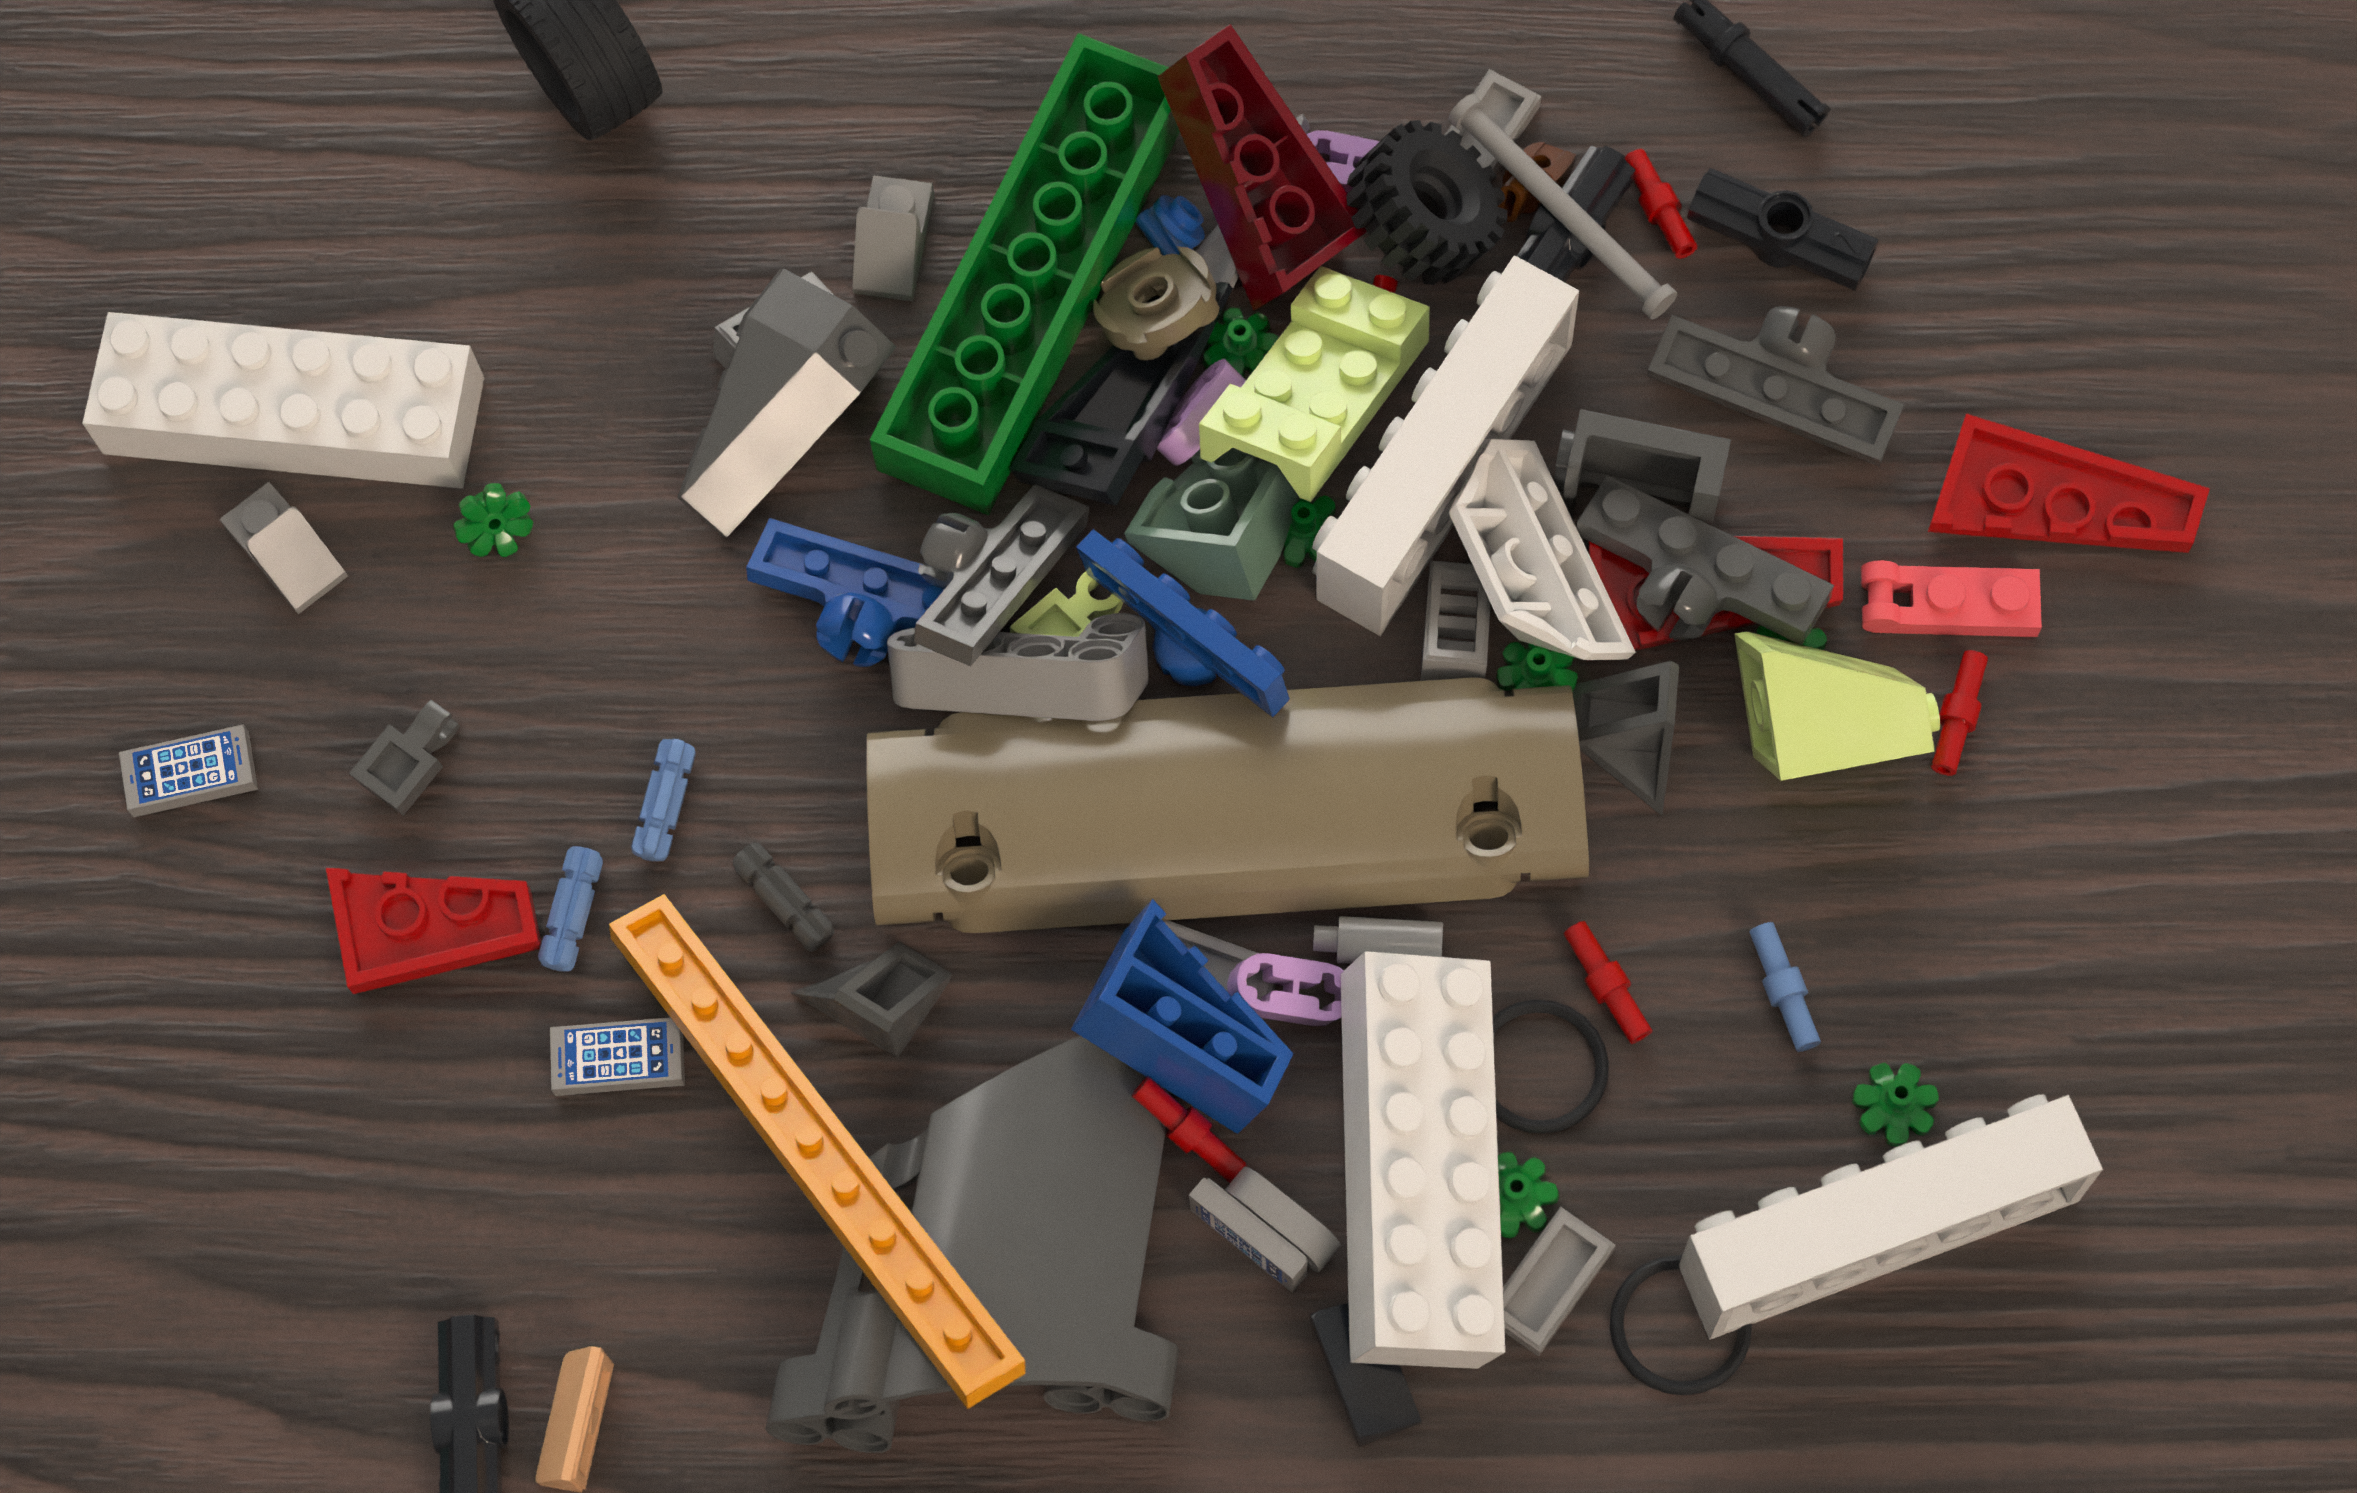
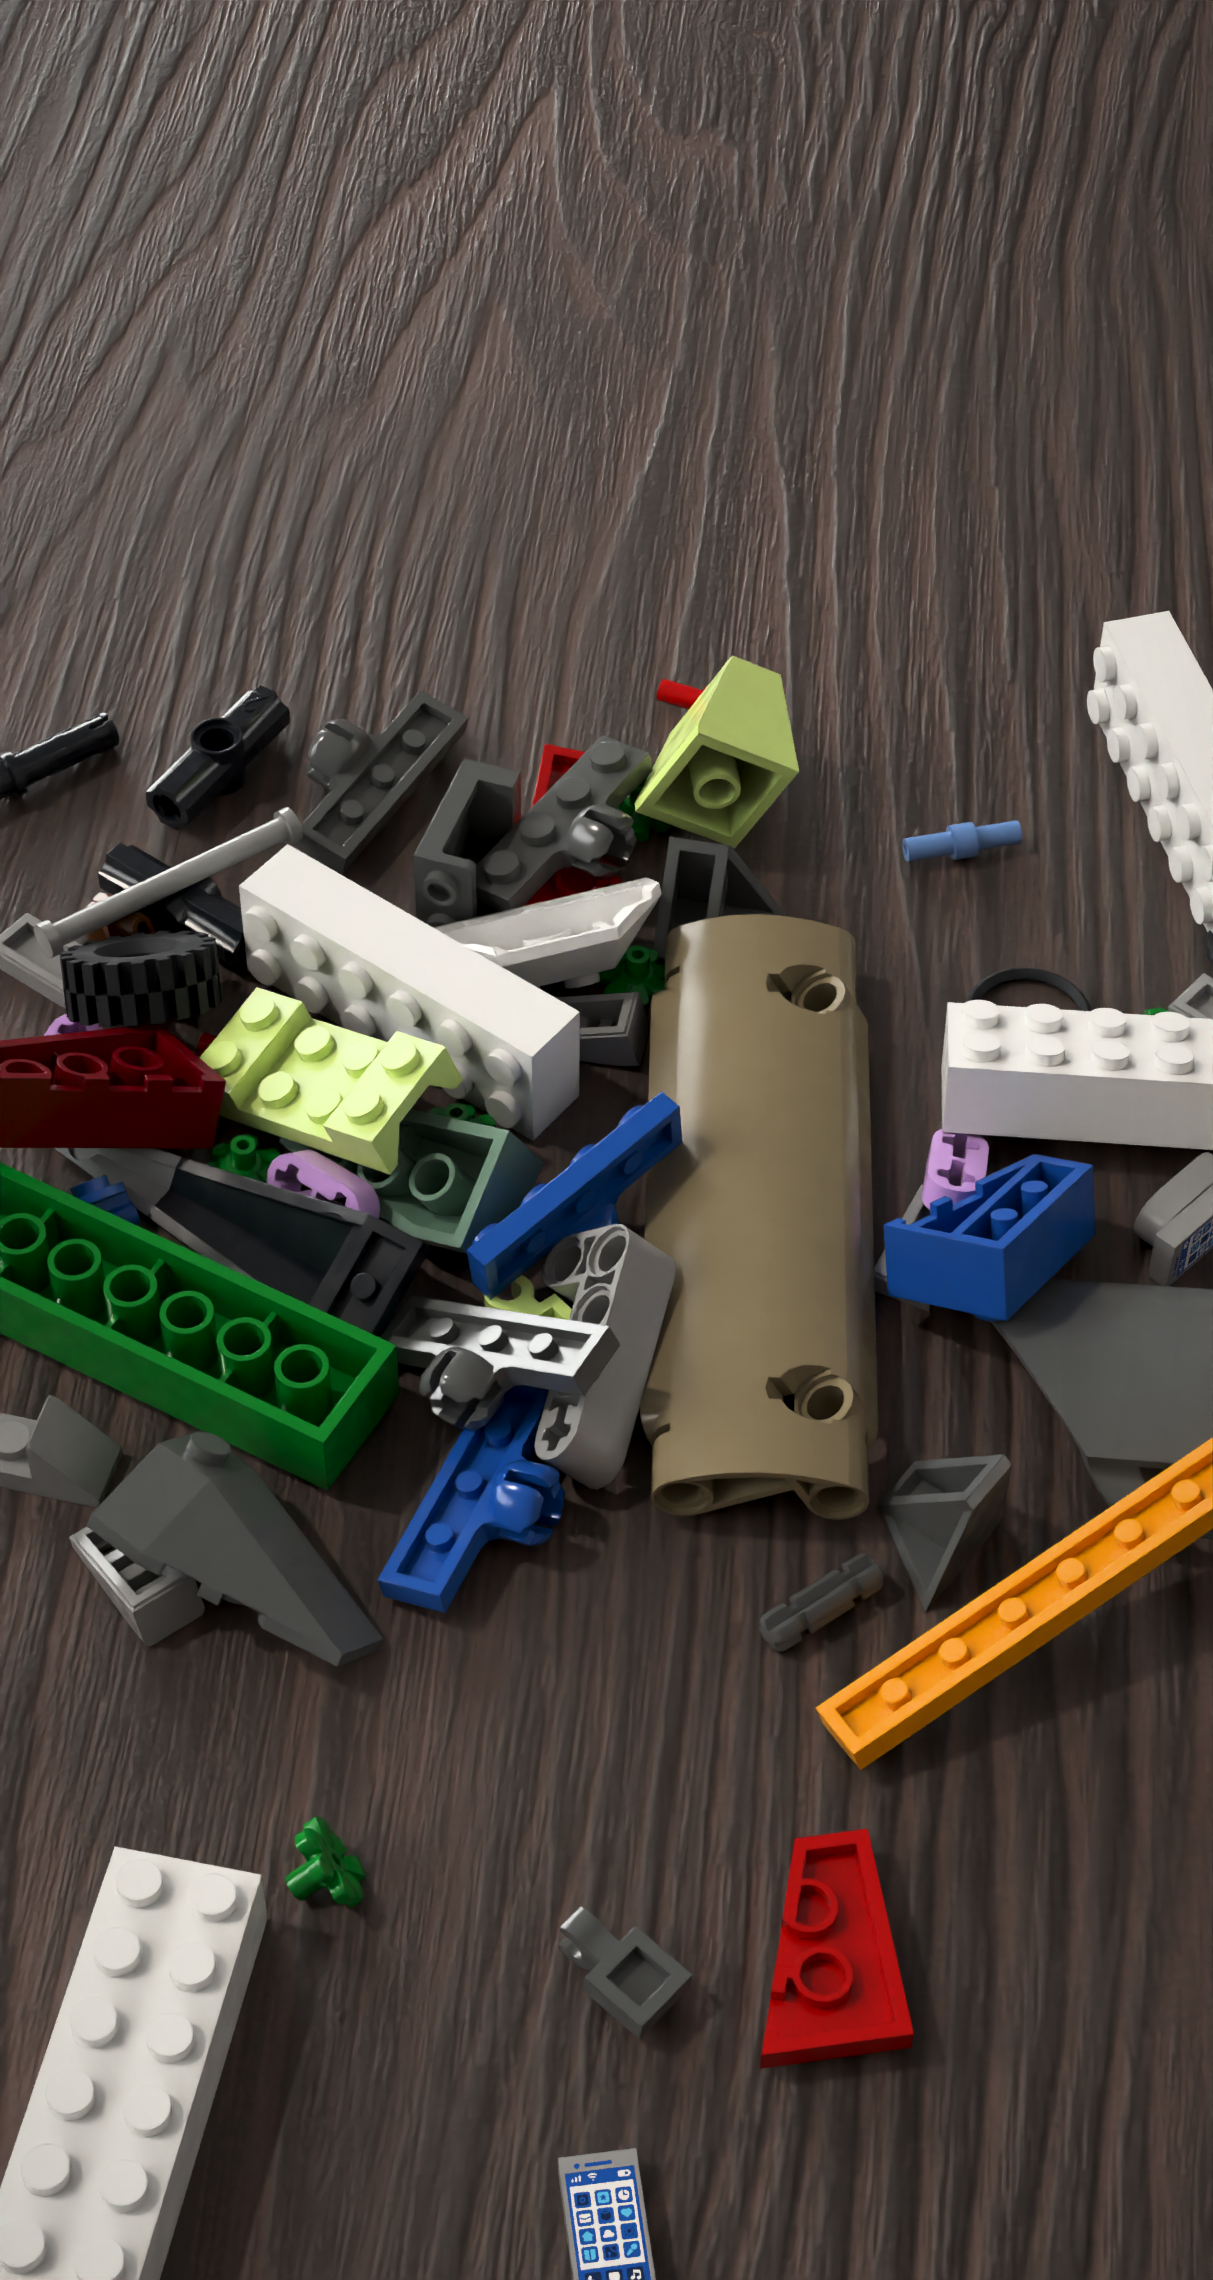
camera: 90 degrees left, 20 degrees down
(284, 547) = (318, 2116): light grey slope -> none
(570, 909) = (820, 1808): medium blue axle -> none
(616, 1056) = (998, 1772): tile -> none
(663, 800) = (699, 1710): medium blue axle -> none
(1184, 301) = (209, 1182): dark tan plate -> none
(1188, 1129) = (1095, 1262): red bar -> none
(1378, 935) = (905, 1106): light grey cylinder -> none
(1607, 982) = (952, 956): red bar -> none
(1661, 205) = (168, 842): red bar -> none
(1895, 1103) = (1069, 786): green plant -> none
(1952, 600) = (604, 693): coral plate -> none
(2053, 492) = (515, 621): red wing -> none

